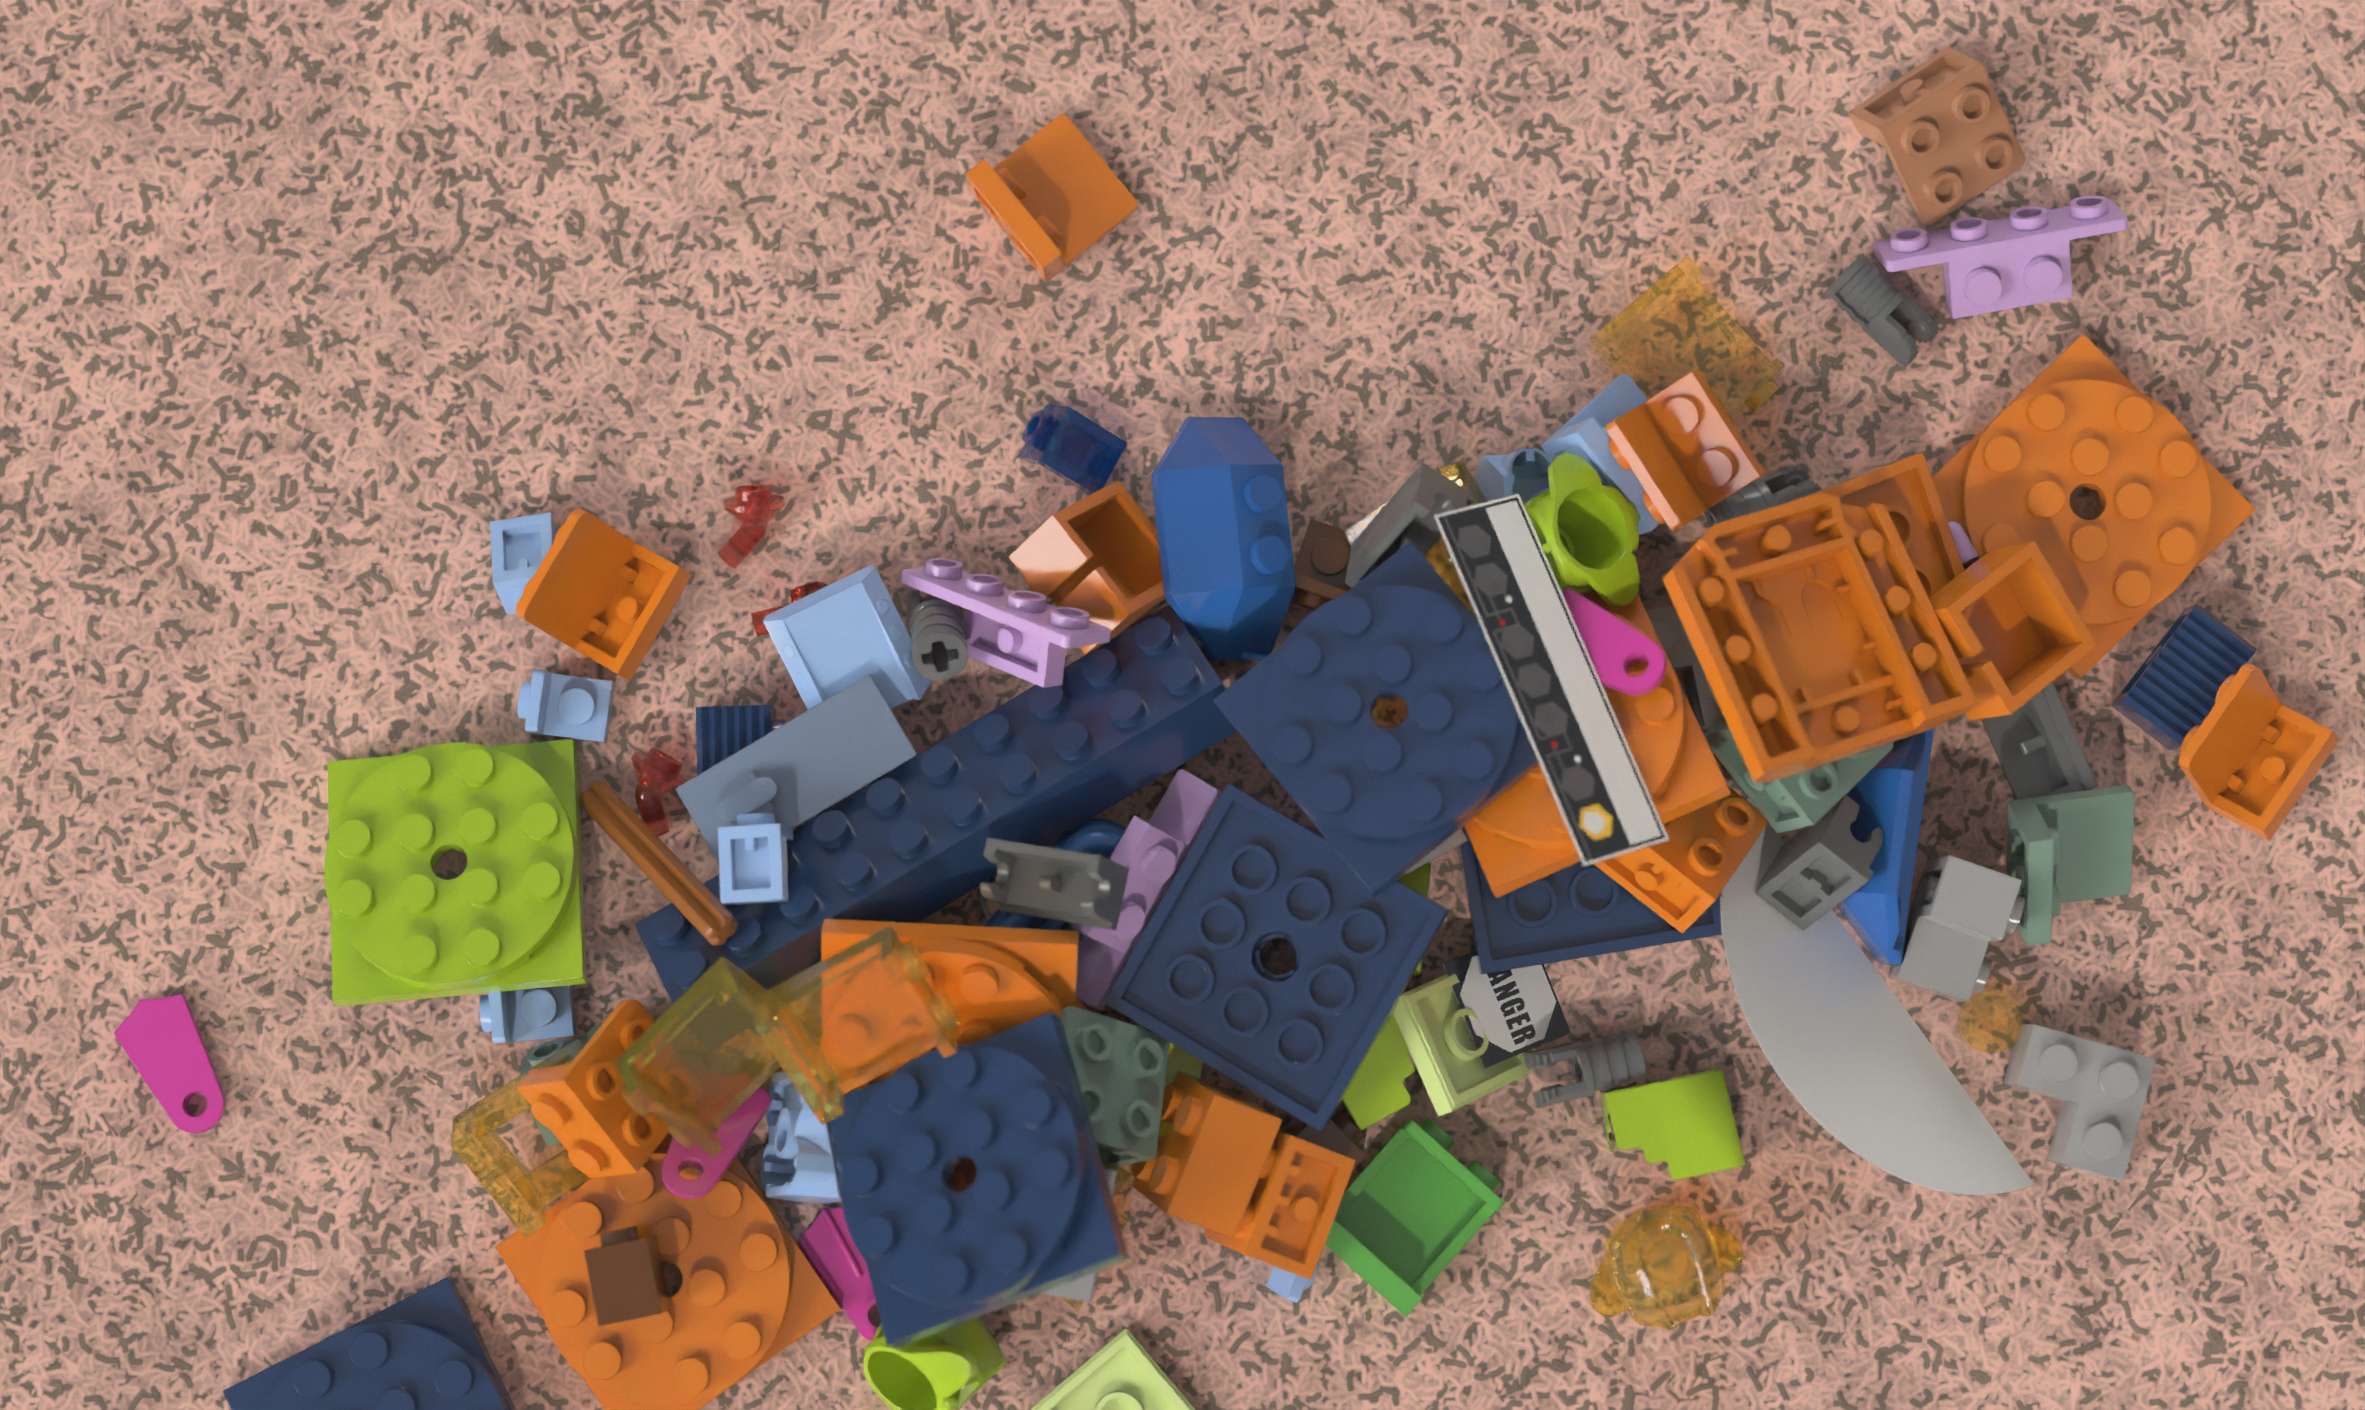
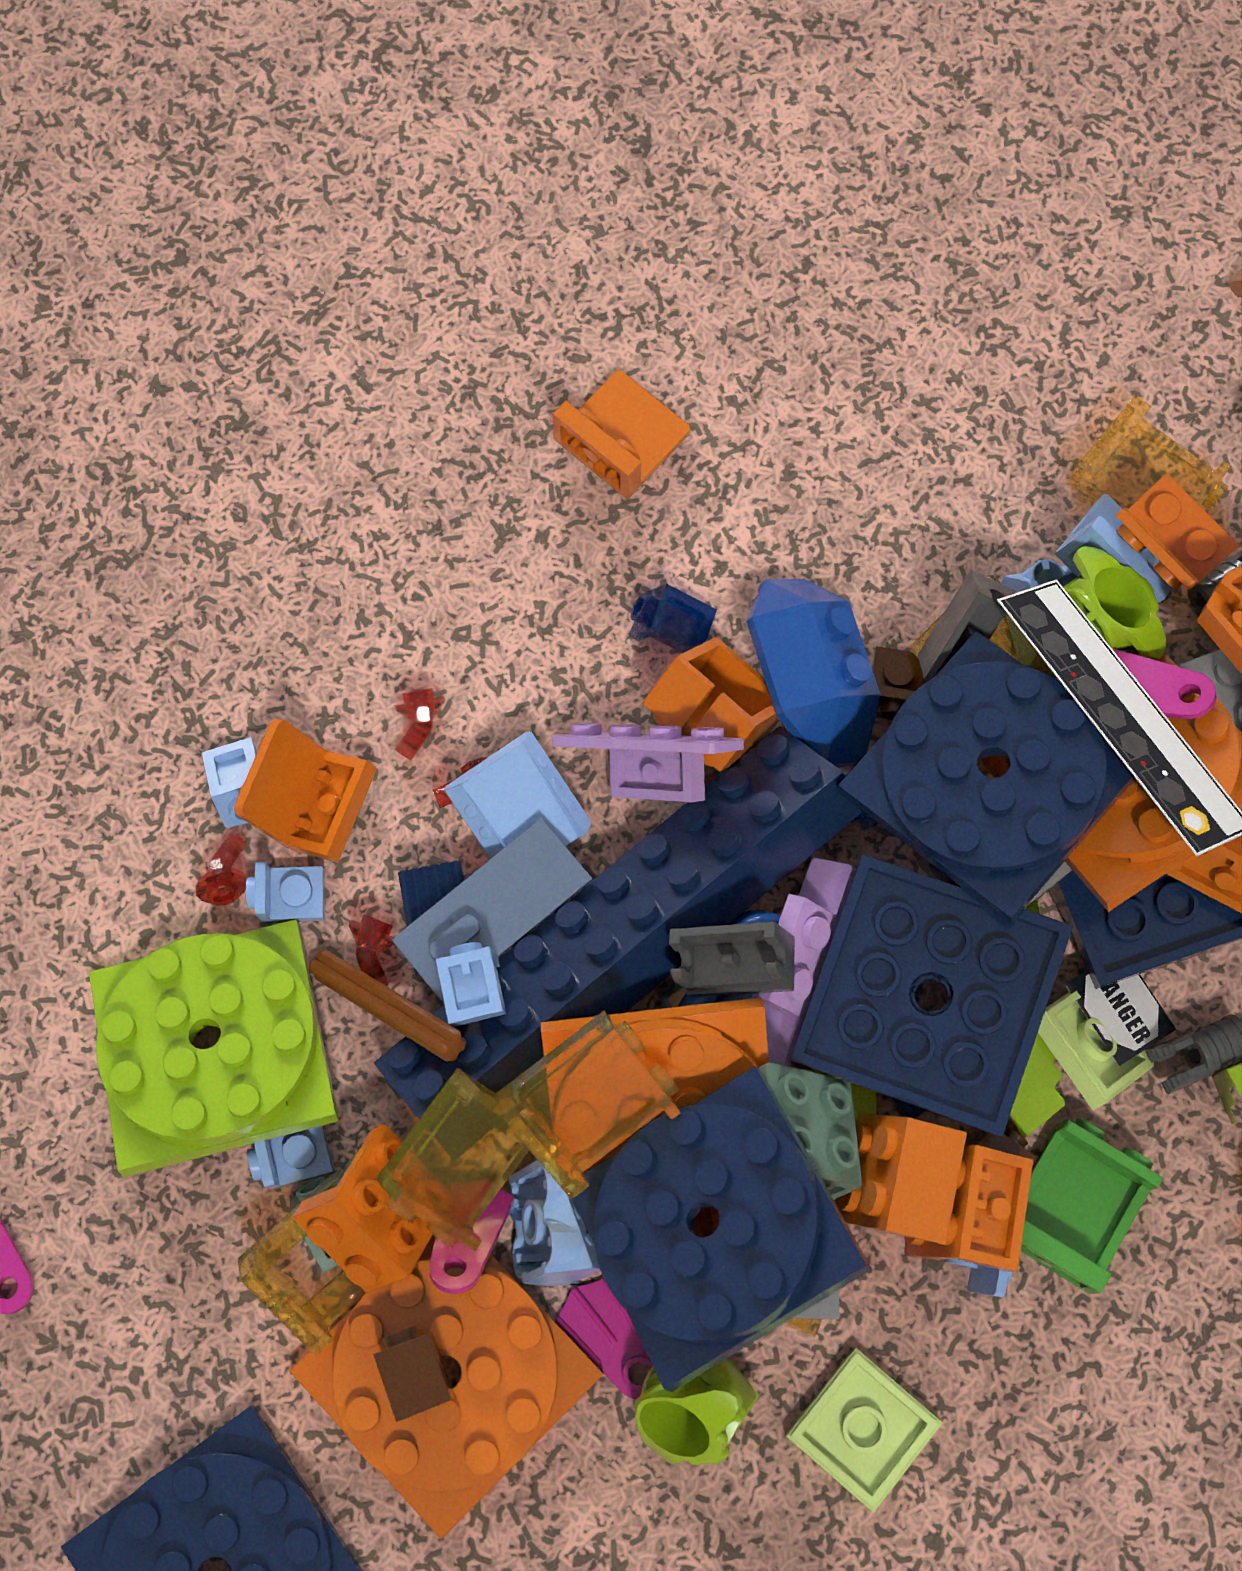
camera: 15 degrees left, 10 degrees down
(491, 682) = (221, 877): none -> clear red plate
(936, 636) = (581, 771): dark grey hinge -> none

